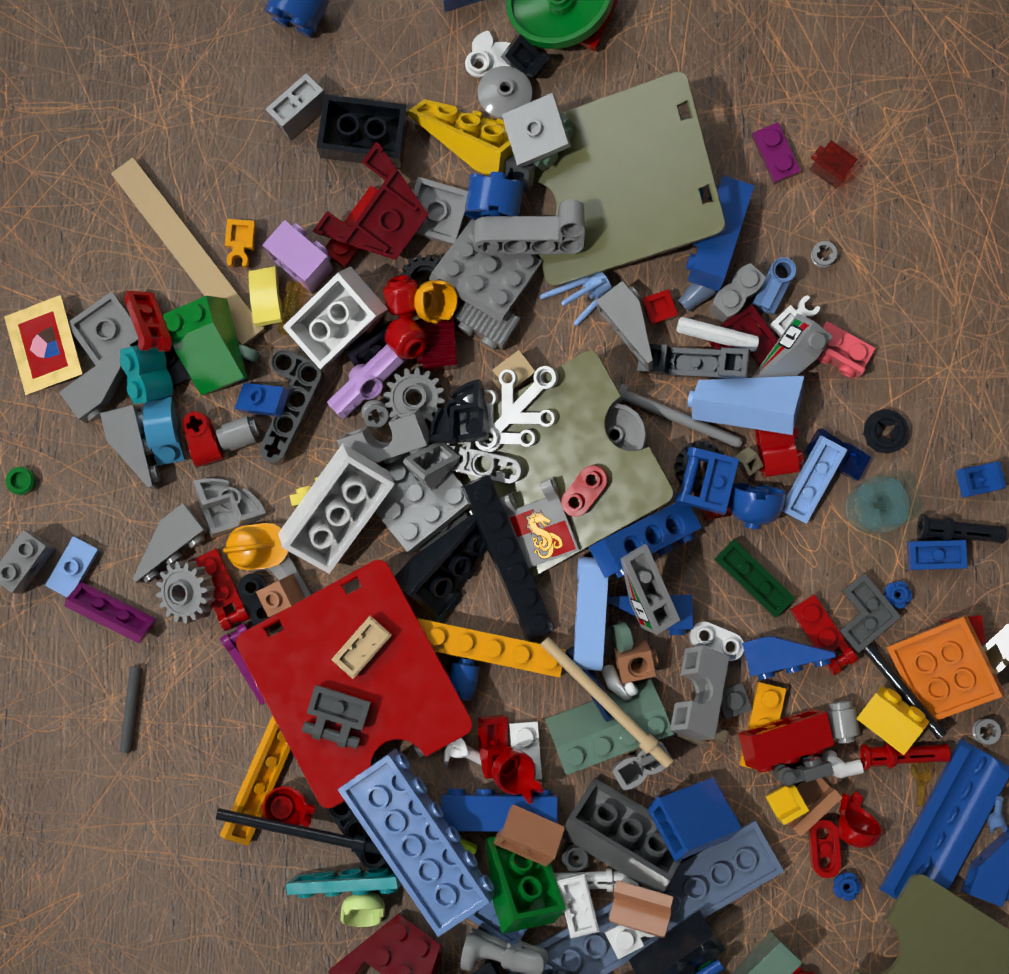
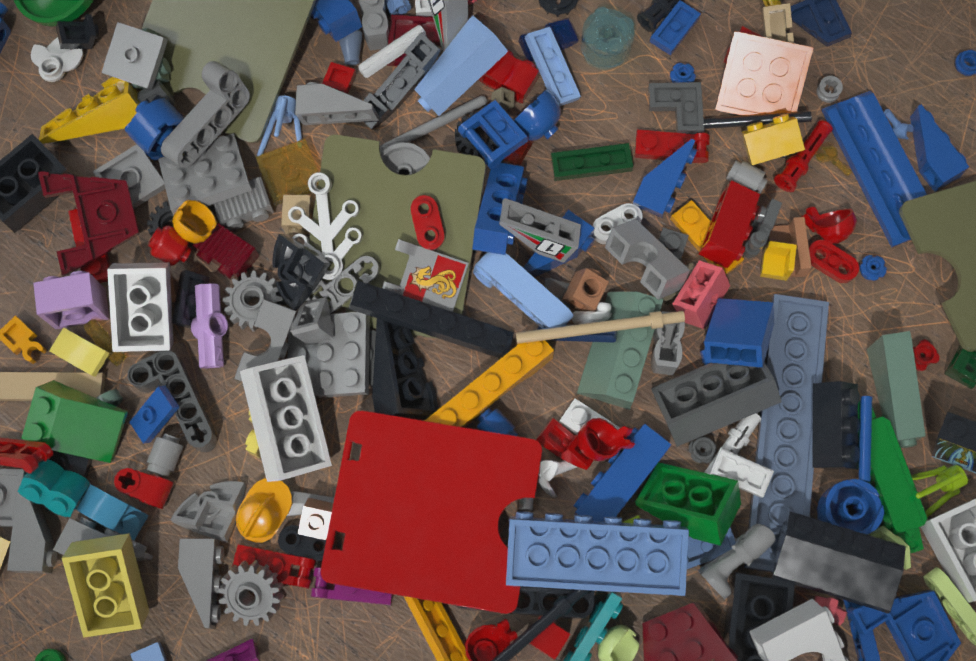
camera: 50 degrees left, 10 degrees down
(104, 478) = (106, 585): none -> light yellow brick
(328, 855) = (551, 641): none -> red panel
(339, 708) = (442, 534): dark grey plate -> none
(361, 647) = (409, 478): tan plate -> none
(376, 422) = (247, 335): light grey bush -> none
(405, 338) = (202, 266): red head -> none
(498, 102) = (87, 75): light grey dish -> none
(530, 836) = (659, 466): nougat panel -> none
(545, 334) = (287, 170): none -> clear yellow plate
(622, 637) = (560, 283): sand green tile -> none
(625, 939) = (792, 454): white plate -> none
(641, 909) = (779, 423): nougat panel -> none
(704, 760) = (701, 293): none -> coral brick
(841, 768) = (787, 199): white arm -> none

